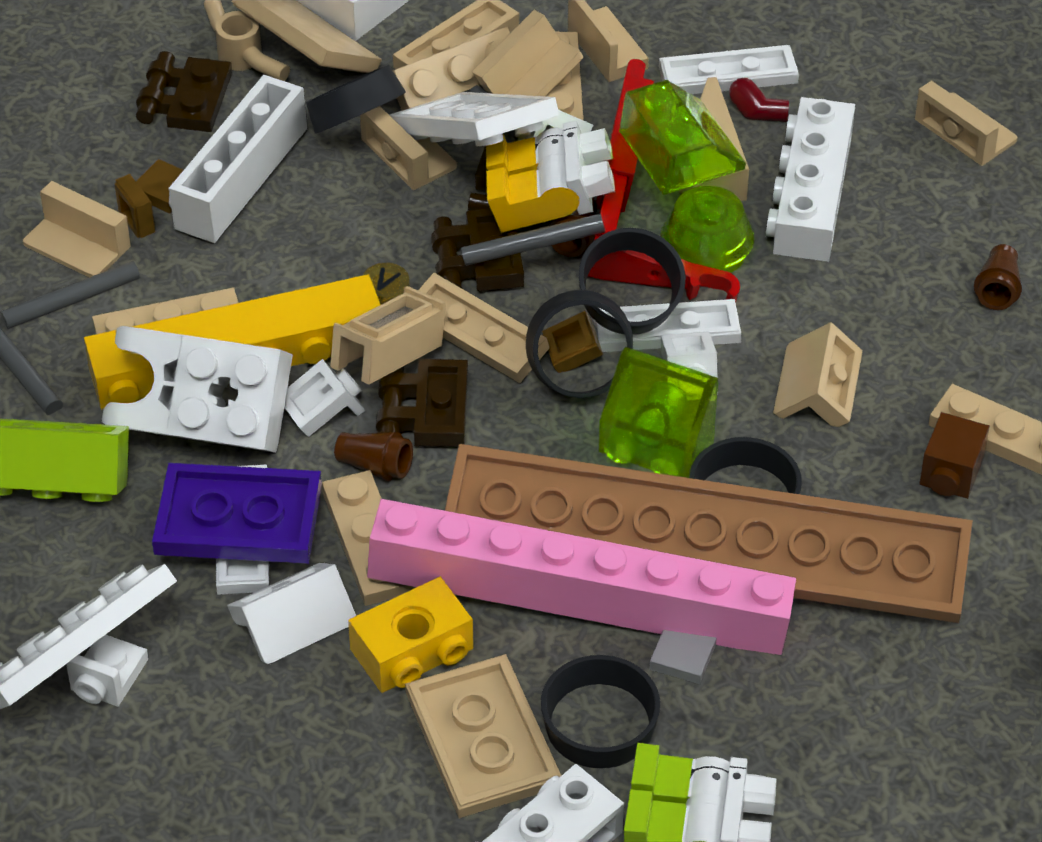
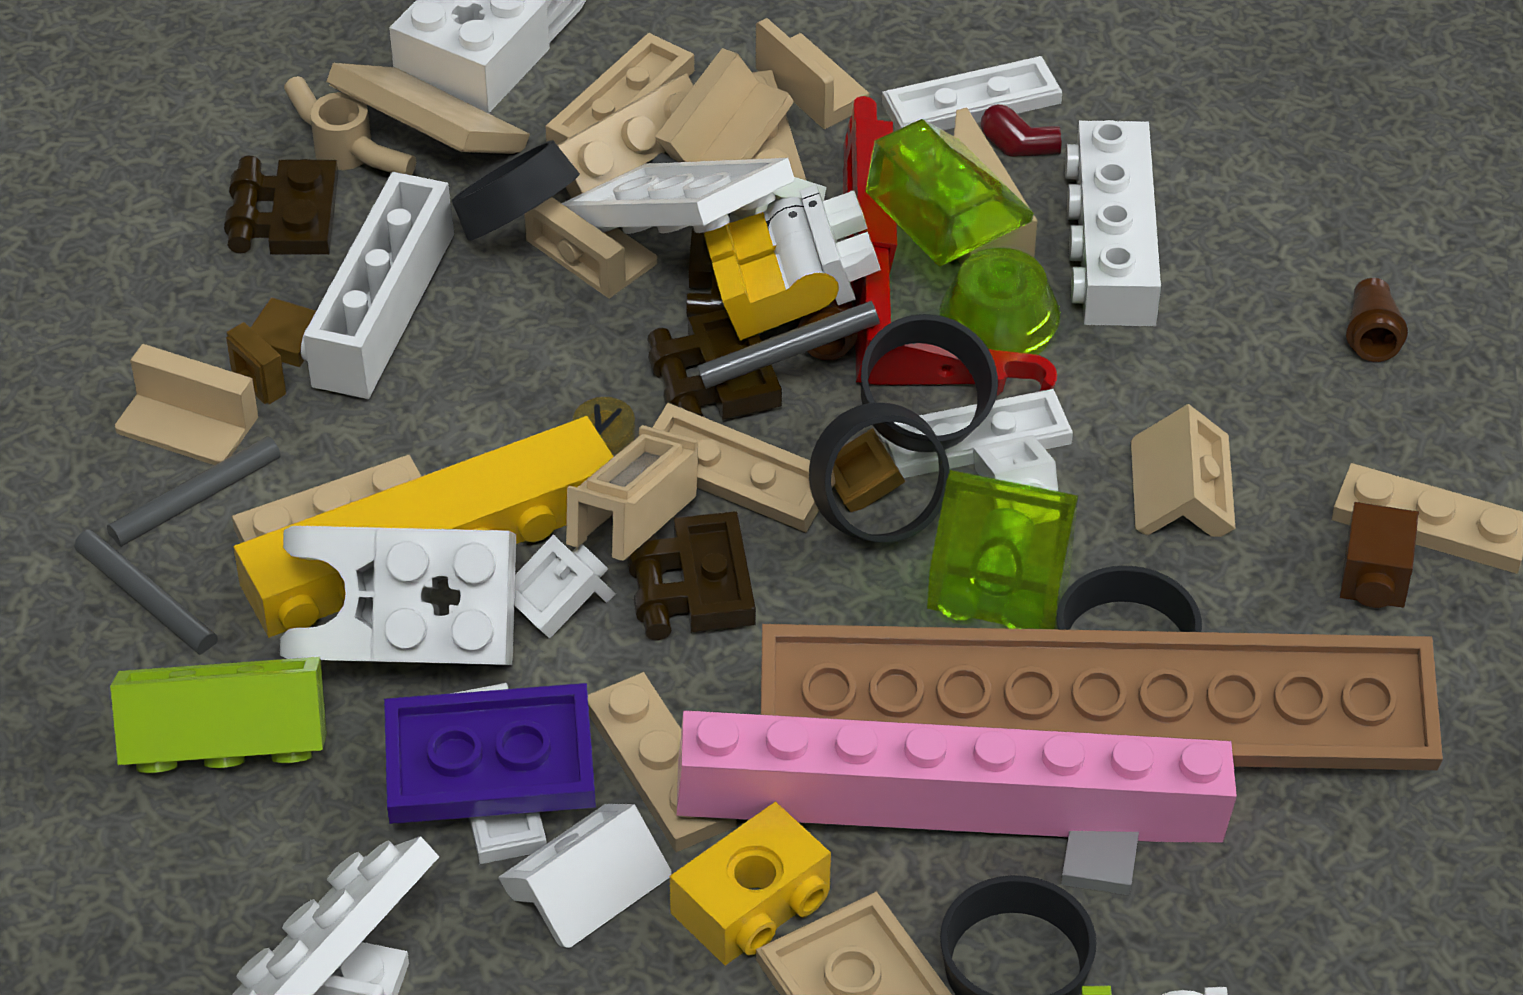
camera: 10 degrees left, 0 degrees up
(382, 453) = (650, 647): reddish brown cone -> none
(962, 124) = (1278, 132): tan panel -> none

